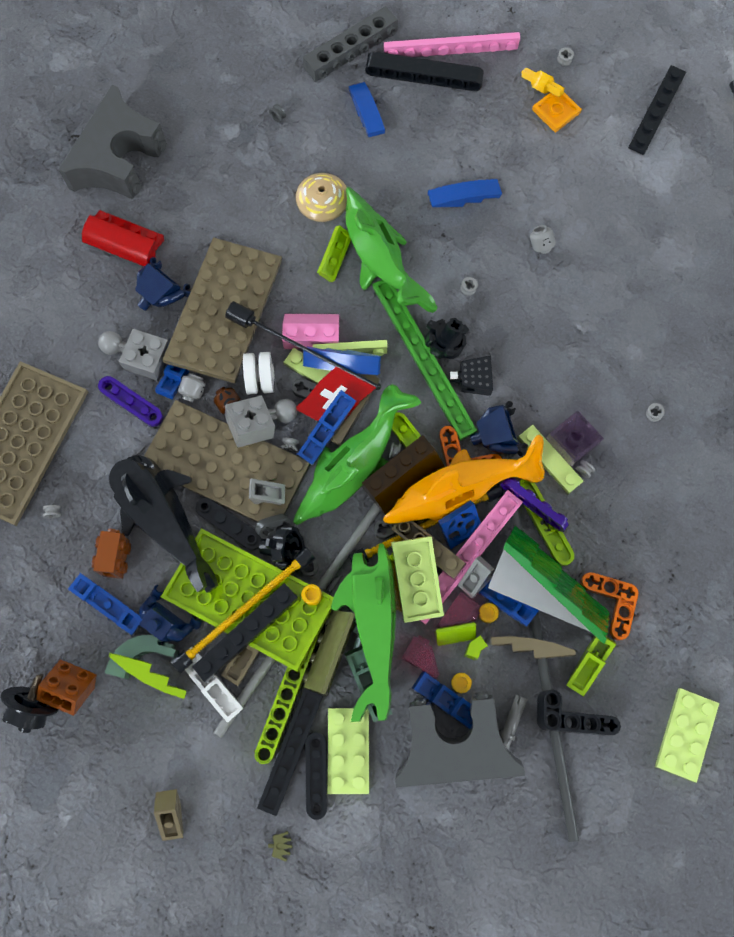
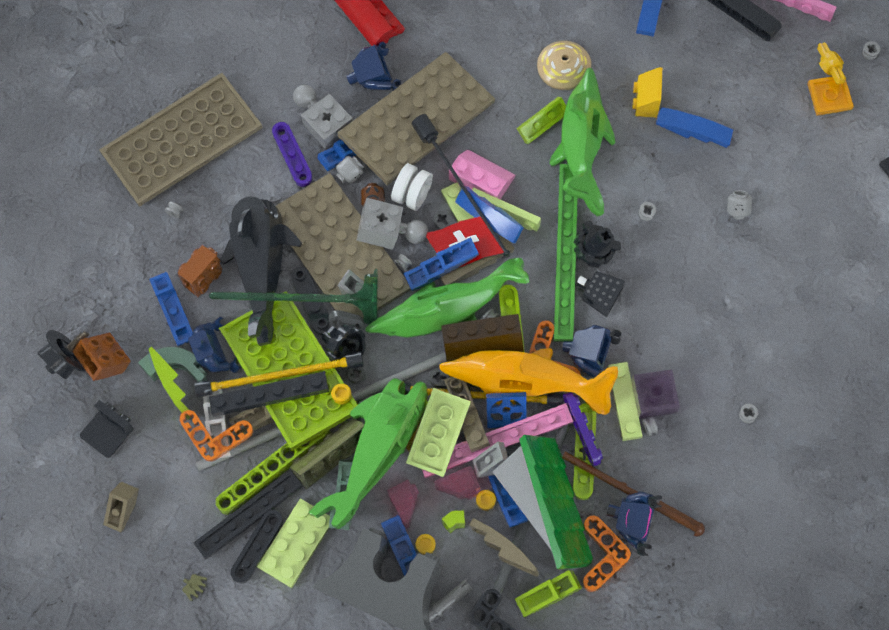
camera: 35 degrees right, 5 degrees down
(112, 752) = (106, 429): none -> black bracket
(223, 706) = (216, 442): none -> orange beam
(280, 497) = (364, 299): none -> clear green piece
(411, 183) = (648, 93): none -> yellow slope
(455, 634) = (445, 499): lime slope -> none
(624, 555) = (635, 518): none -> dark blue torso
(636, 533) = (670, 512): none -> reddish brown bar

